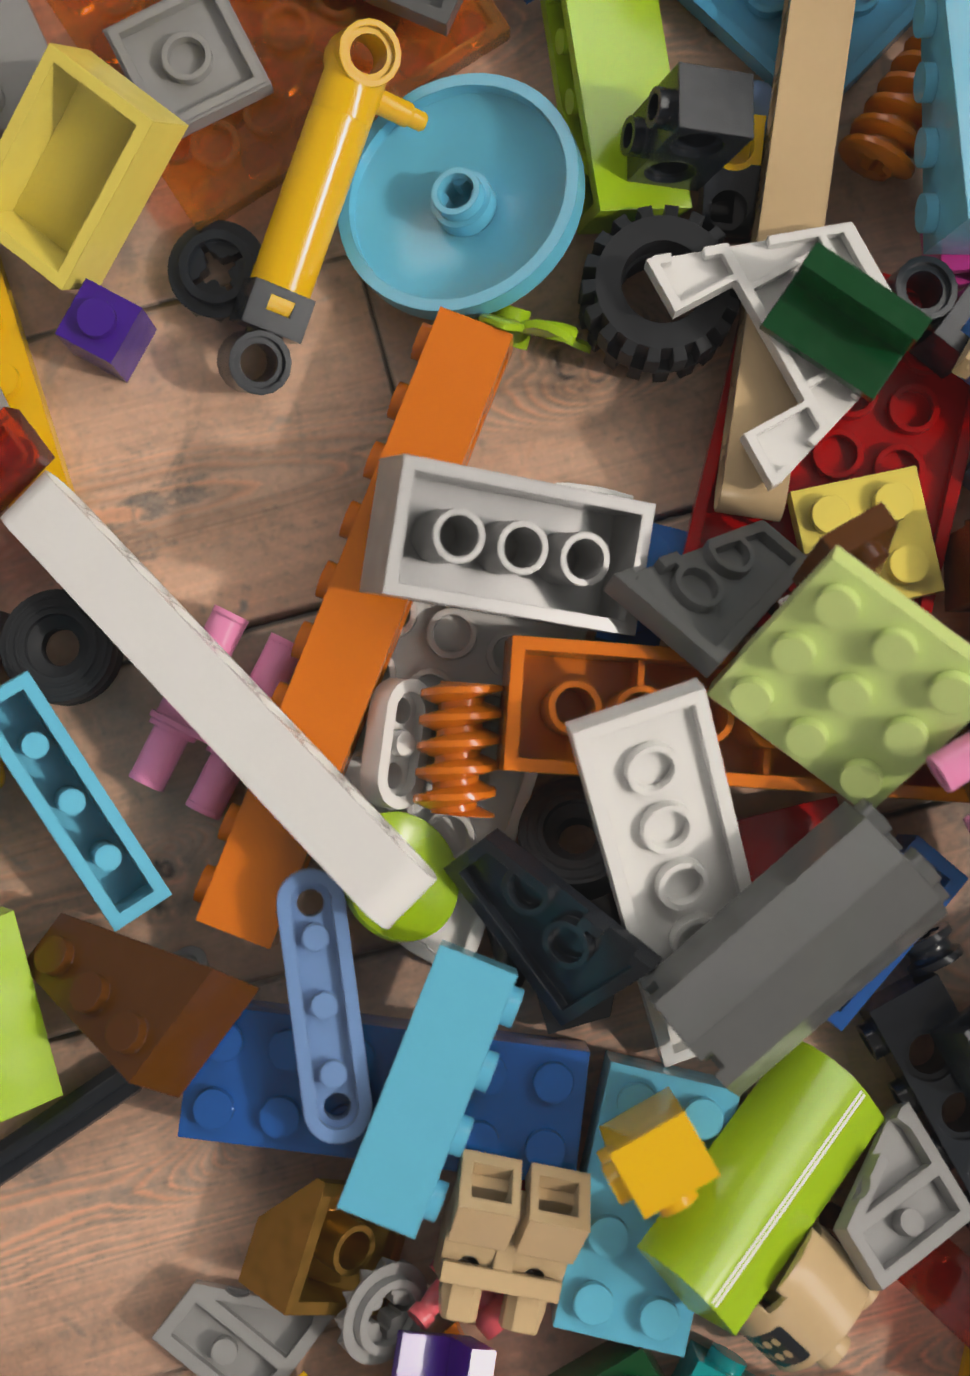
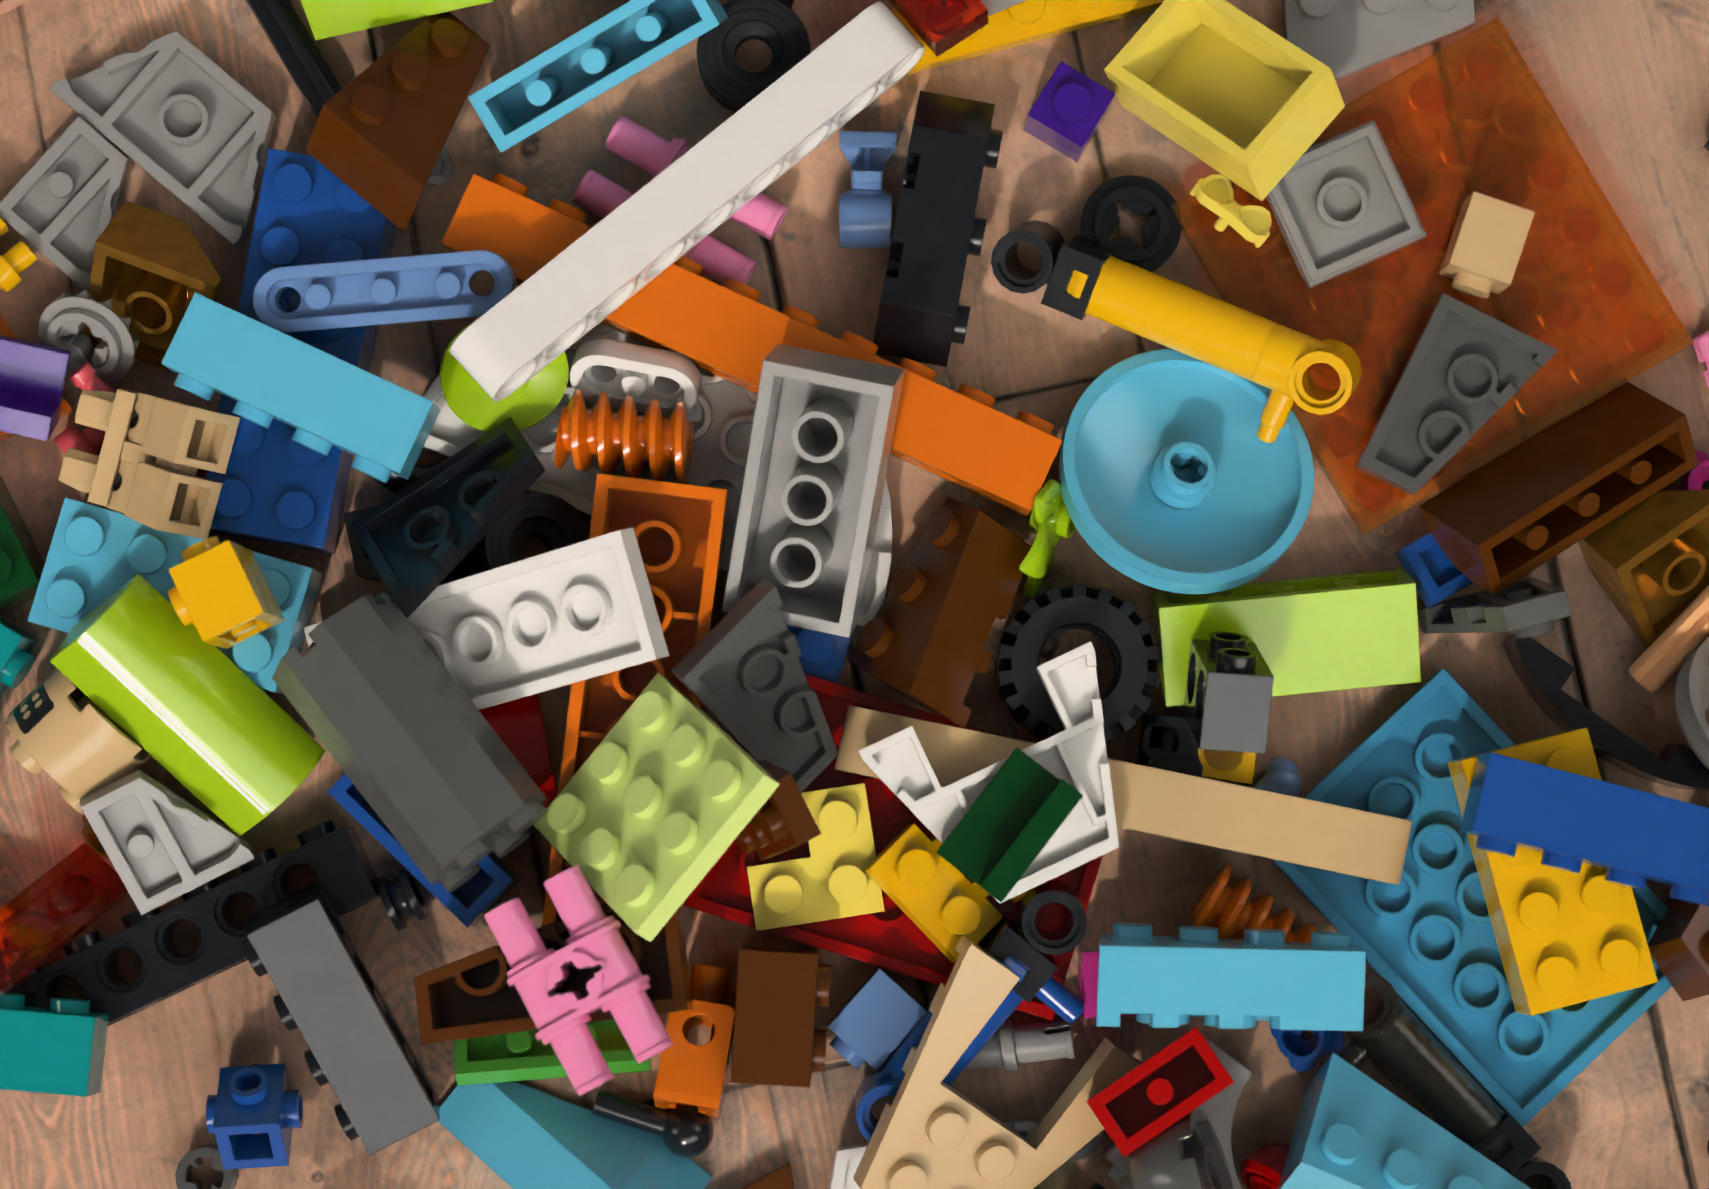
camera: 90 degrees right, 0 degrees up
(157, 1228) = (182, 126): none -> light grey wing
(185, 177) = (1218, 196): none -> light yellow piece
(215, 528) = (866, 208): none -> medium blue leg
(229, 453) = (936, 228): none -> black brick
(615, 423) = (943, 609): none -> reddish brown wedge
(883, 432) = (933, 891): none -> yellow plate

